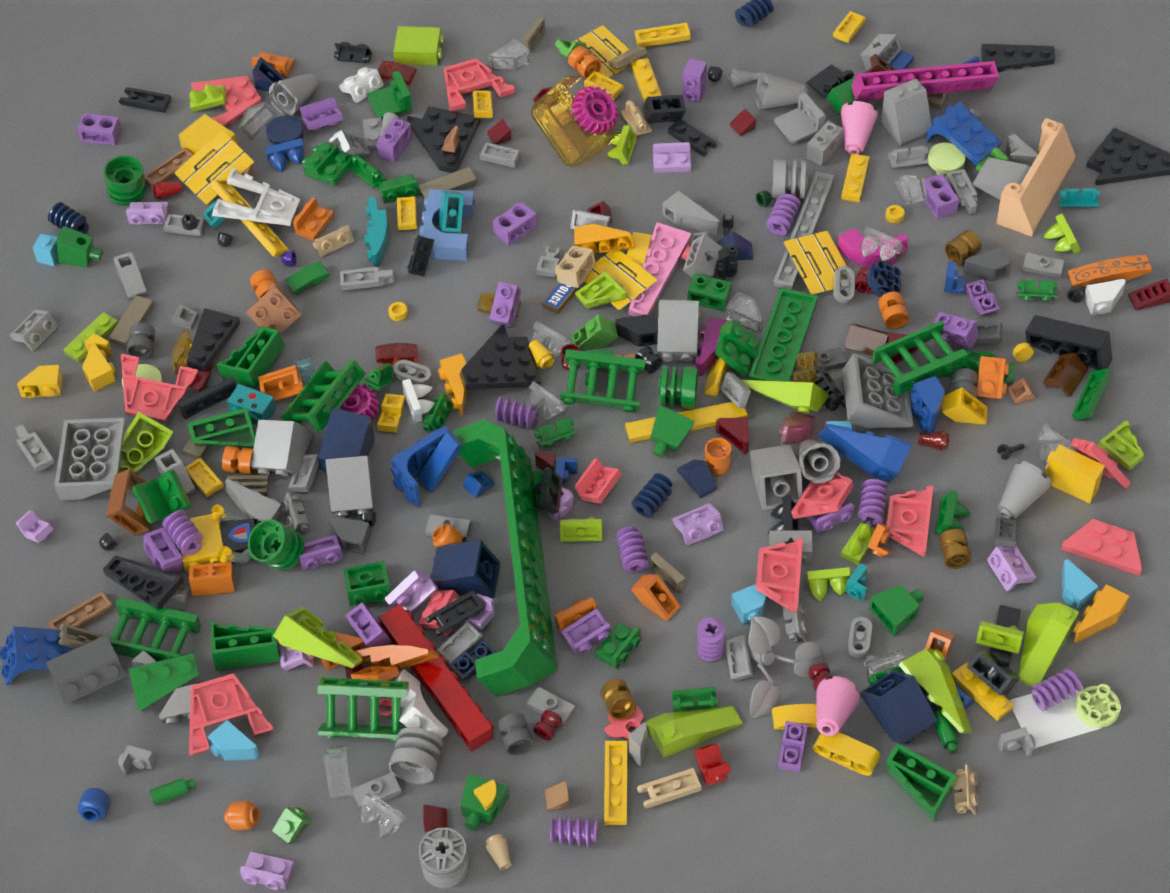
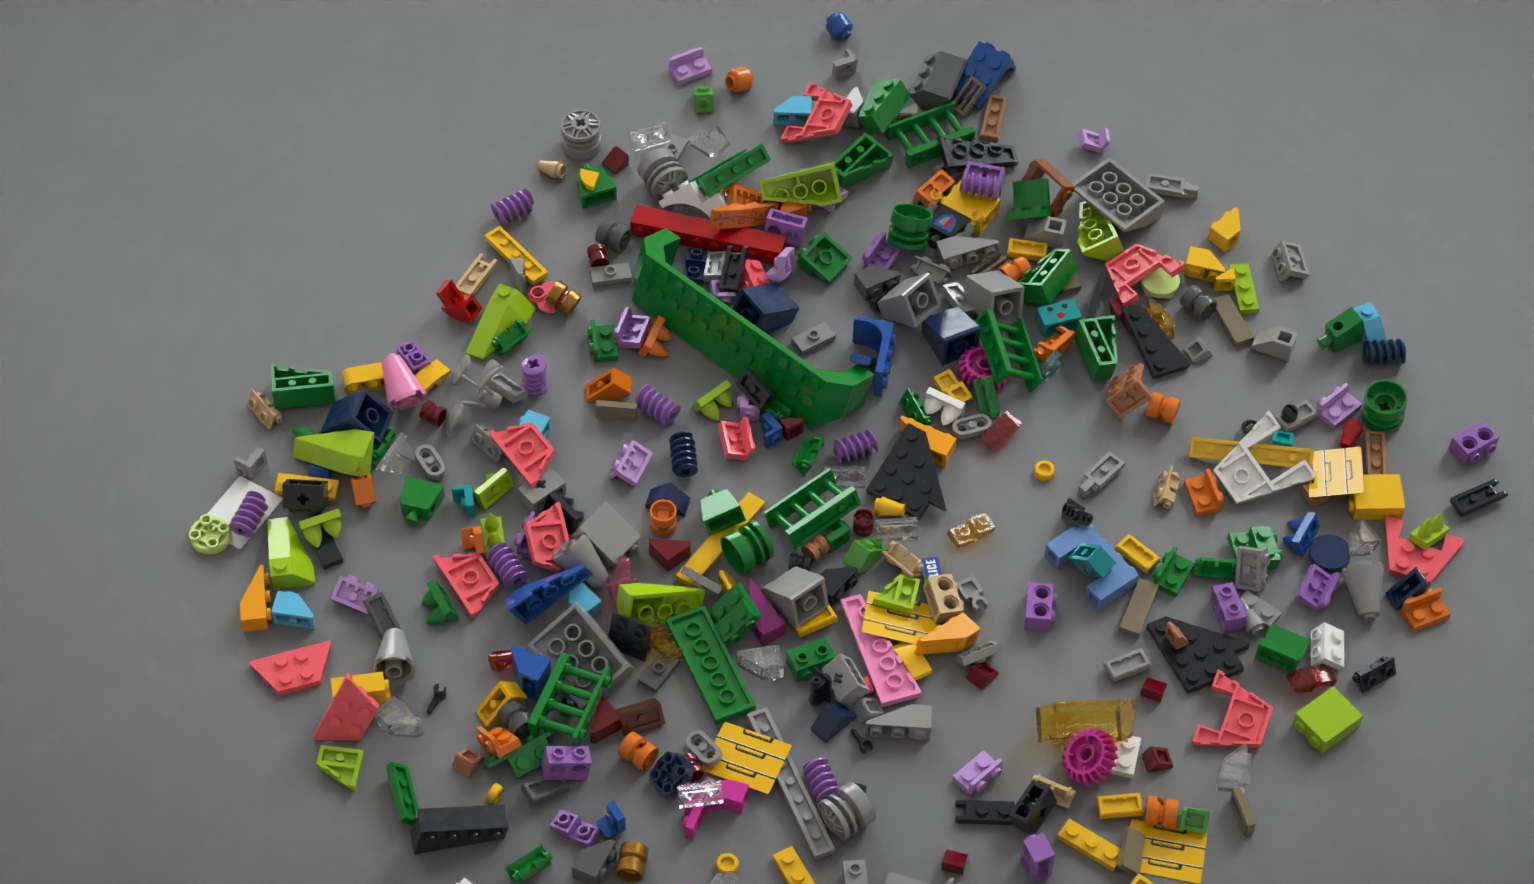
camera: 135 degrees right, 0 degrees up
(171, 790) = (802, 65): green cylinder -> none
(289, 258) = (1179, 449): dark purple hinge -> none
(311, 274) = (1145, 444): green slope -> none
(377, 232) = (1134, 516): teal slope -> none
(446, 535) = (799, 321): orange head -> none
(482, 104) = (1200, 703): yellow plate -> none
(505, 304) = (956, 516): medium lavender brick -> none
(557, 797) = (547, 225): medium nougat slope -> none
(573, 312) = (896, 556): none -> tan hinge
(625, 145) = (1030, 752): lime tile -> none
(955, 548) = (410, 573): pearl gold wheel -> none
(1066, 373) = (441, 793): reddish brown panel -> none

